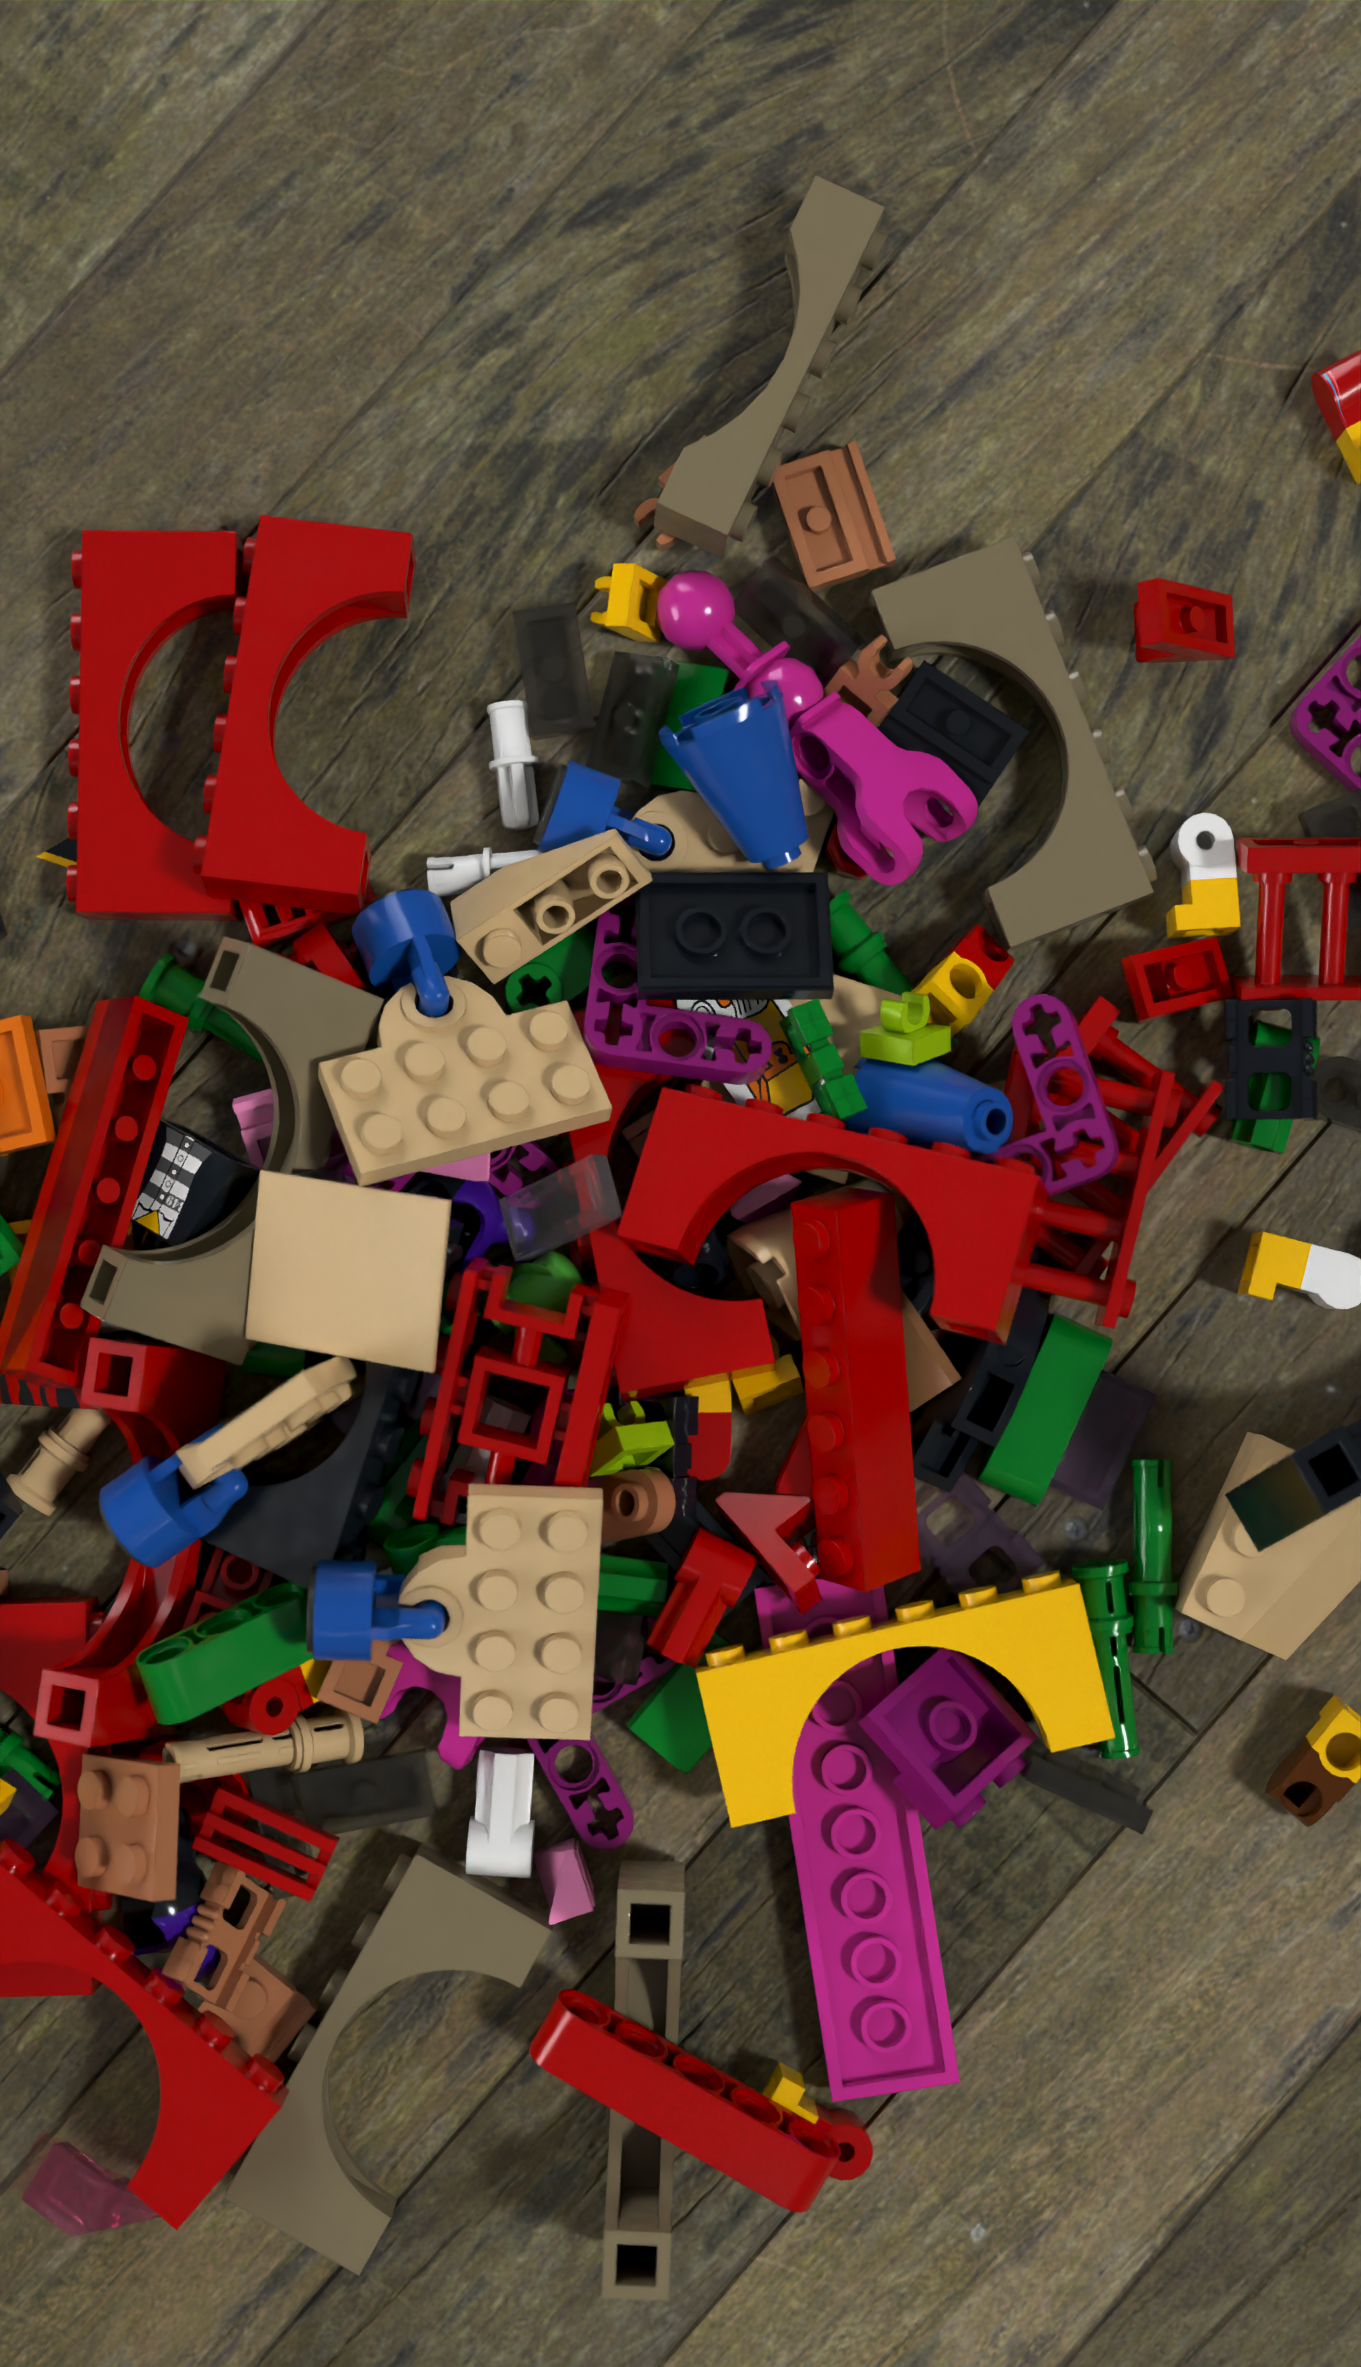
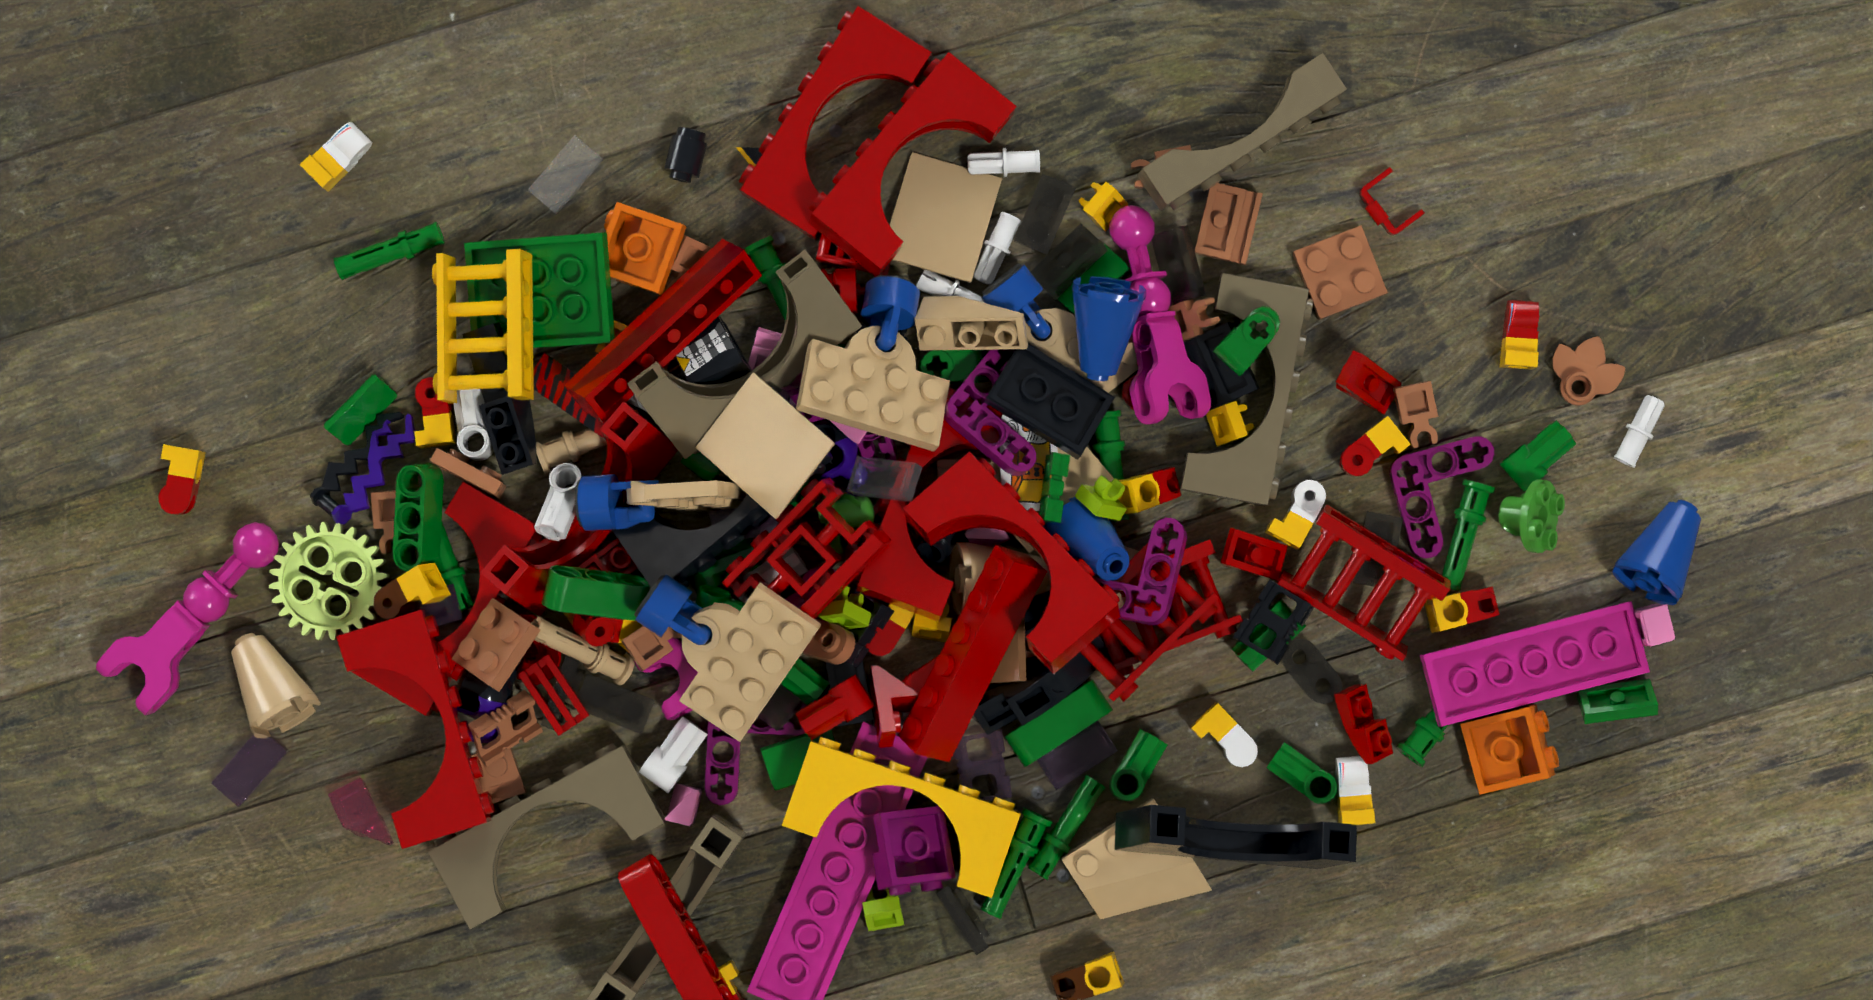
camera: 40 degrees right, 0 degrees up
(100, 1567) = (559, 504): none -> white piece
(406, 766) = (943, 216): none -> tan piece
(446, 632) = (1003, 162): none -> white axle
(960, 1855) = (882, 912): none -> lime tile
(970, 673) = (1245, 343): none -> green piece
(1016, 810) = (1227, 423): none -> yellow tile
(1040, 488) = (1340, 272): none -> nougat plate
(1041, 368) = (1377, 212): none -> red piece
(1197, 1393) = (1138, 763): none -> green piece
(1240, 731) = (1360, 455): none -> leg
(1275, 615) = (1415, 406): none -> nougat plate

